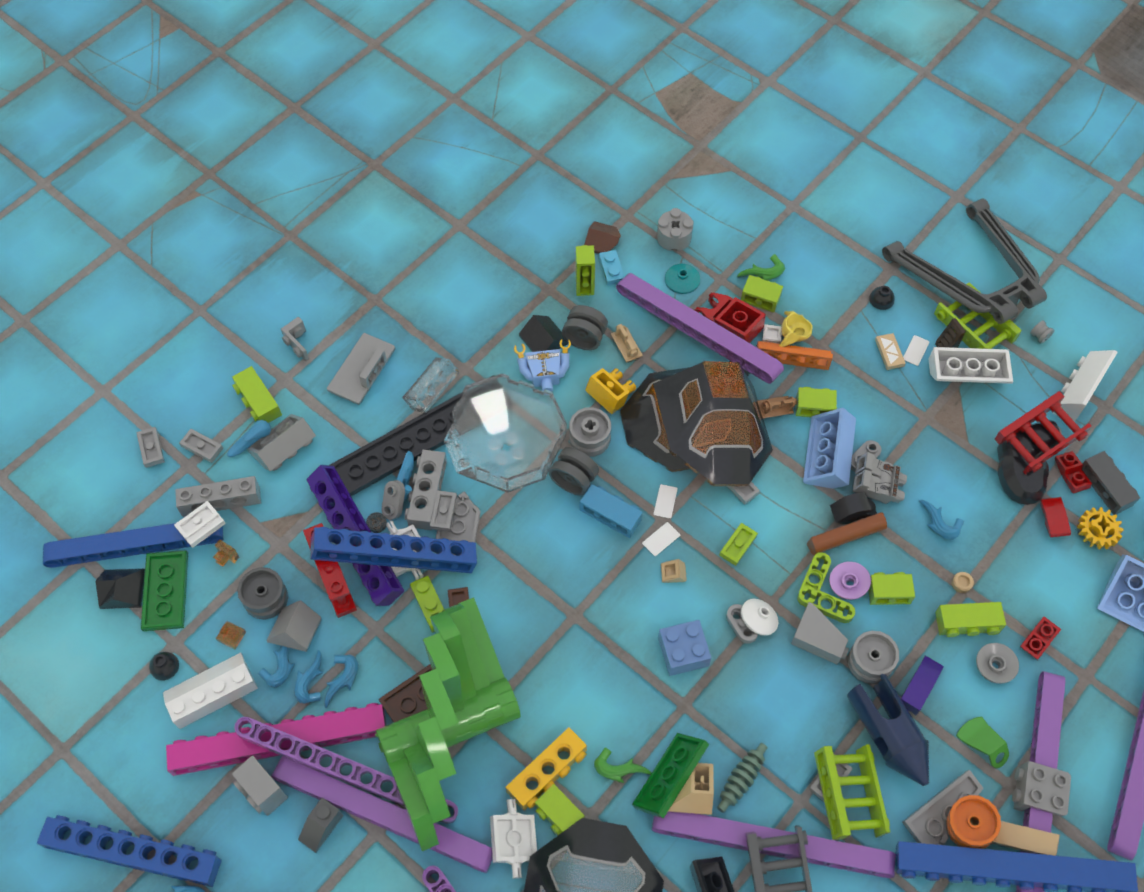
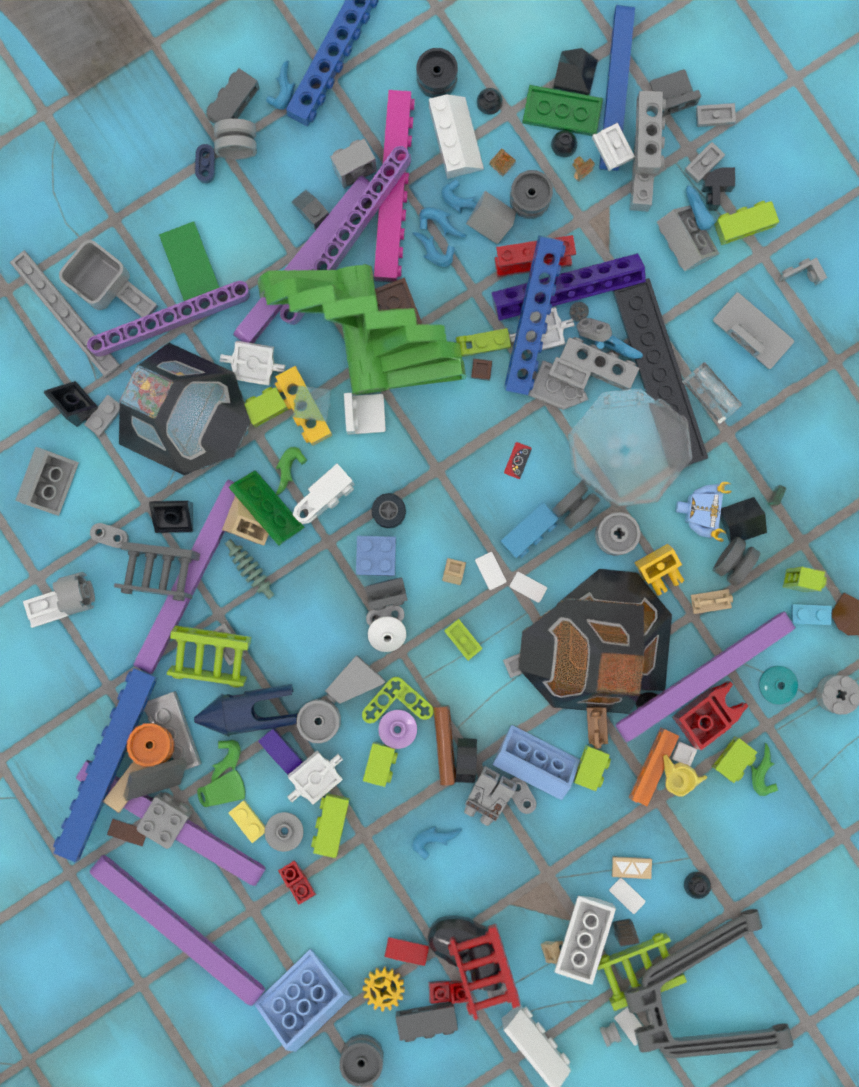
camera: 110 degrees right, 25 degrees up
(132, 489) = (676, 91): none -> dark grey bracket
(140, 724) = (437, 72): none -> black wheel
(172, 498) = (646, 102): none -> light grey brick
(200, 579) = (564, 143): none -> black brick
(221, 430) = (718, 181): none -> black brick
(513, 314) = (777, 495): none -> clear green tile
(538, 702) = (364, 413): none -> white bracket
(543, 542) = (517, 460): none -> sticker
(543, 755) = (312, 403): none -> clear light blue piece
(636, 642) = (384, 506): none -> black wheel
(637, 715) = (324, 494): none -> white brick
(720, 626) = (386, 594): none -> dark grey bracket
(931, 646) = (314, 777): none -> white plate
(944, 739) = (229, 761): none -> bright green piece
(962, 582) = (369, 835): tan tile -> none
(994, 394) = (551, 951): none -> tan tile
(1002, 705) = (248, 821): none -> light yellow plate
(1006, 806) = (155, 778): none -> dark grey tile
(1027, 320) = (628, 1023): none -> white sticker
(1072, 834) = (126, 832): none -> reddish brown sticker

